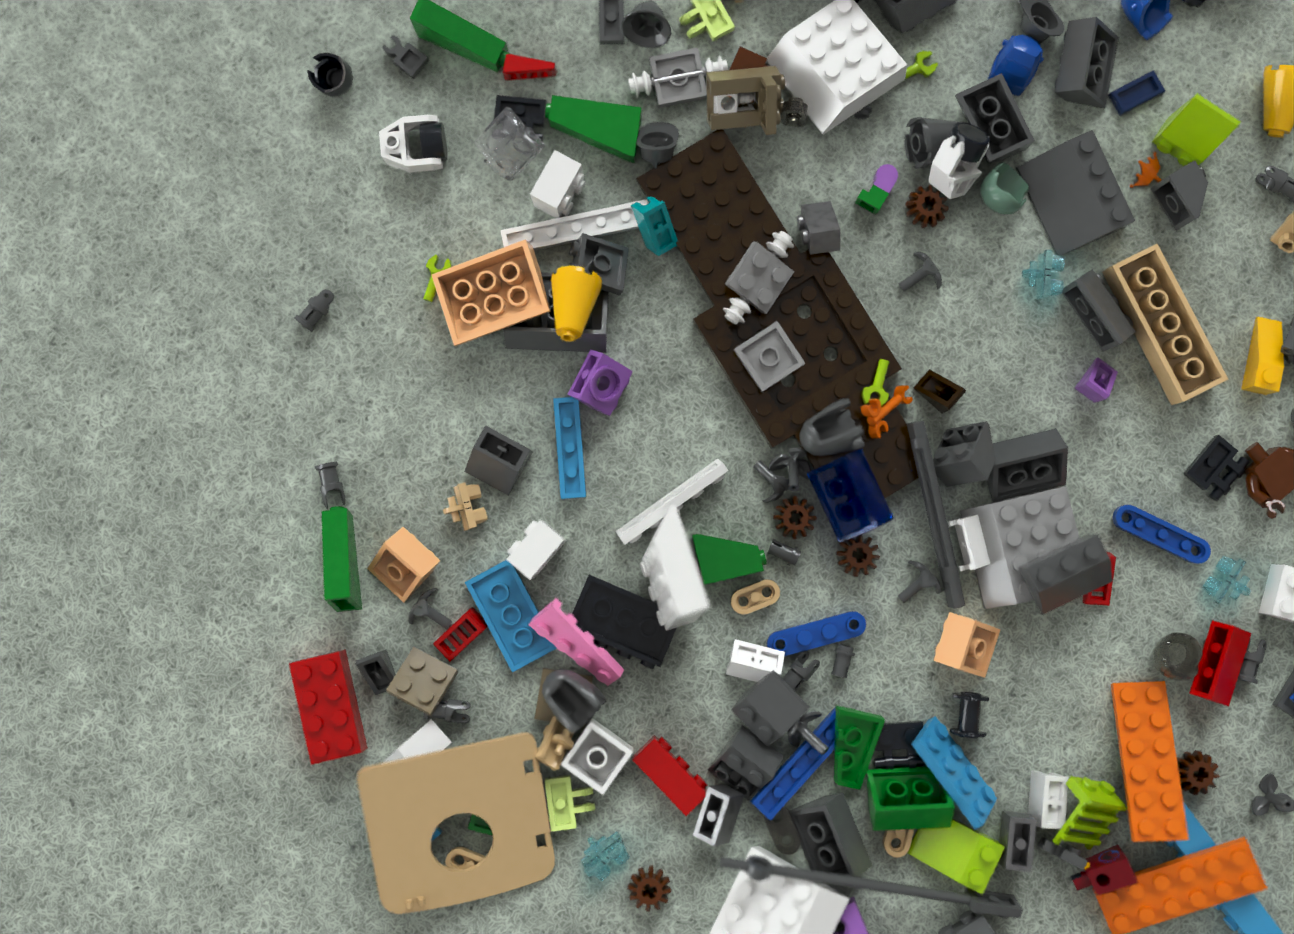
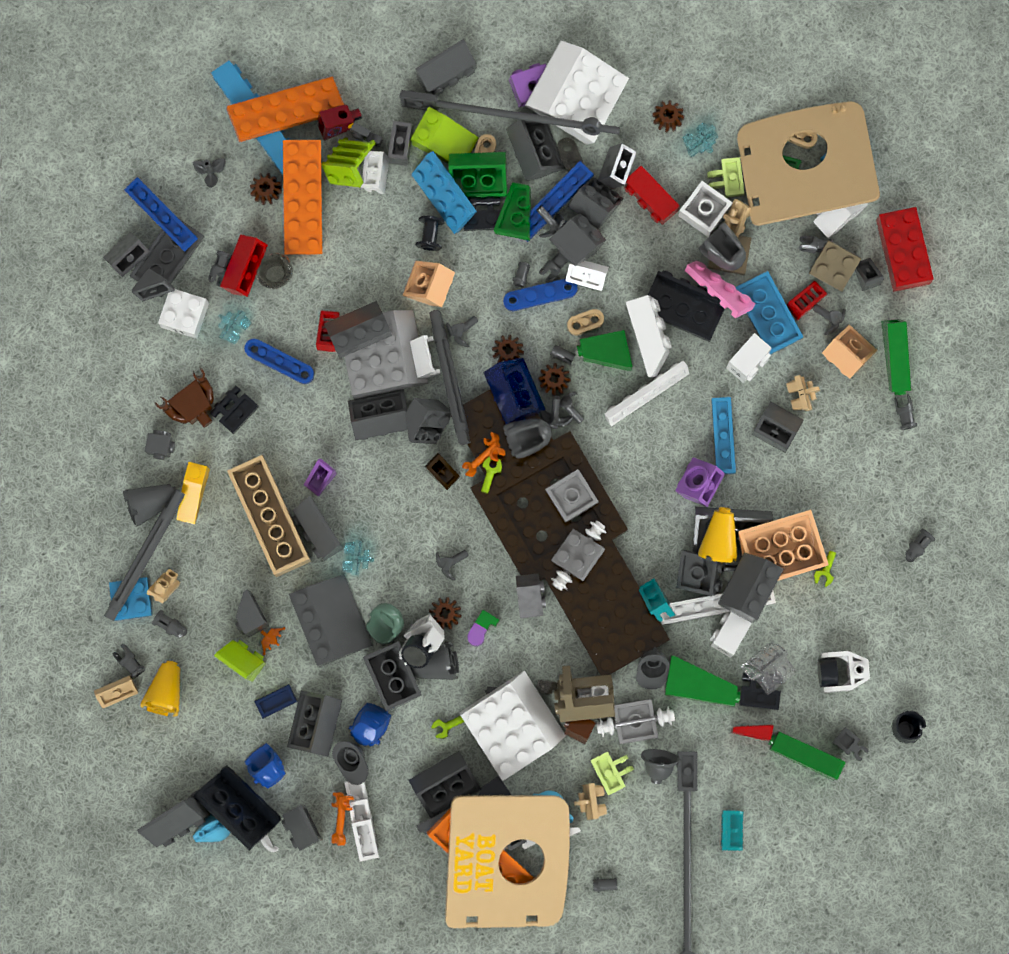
camera: 175 degrees left, 5 degrees down
(532, 233) = (750, 587): none -> dark grey slope

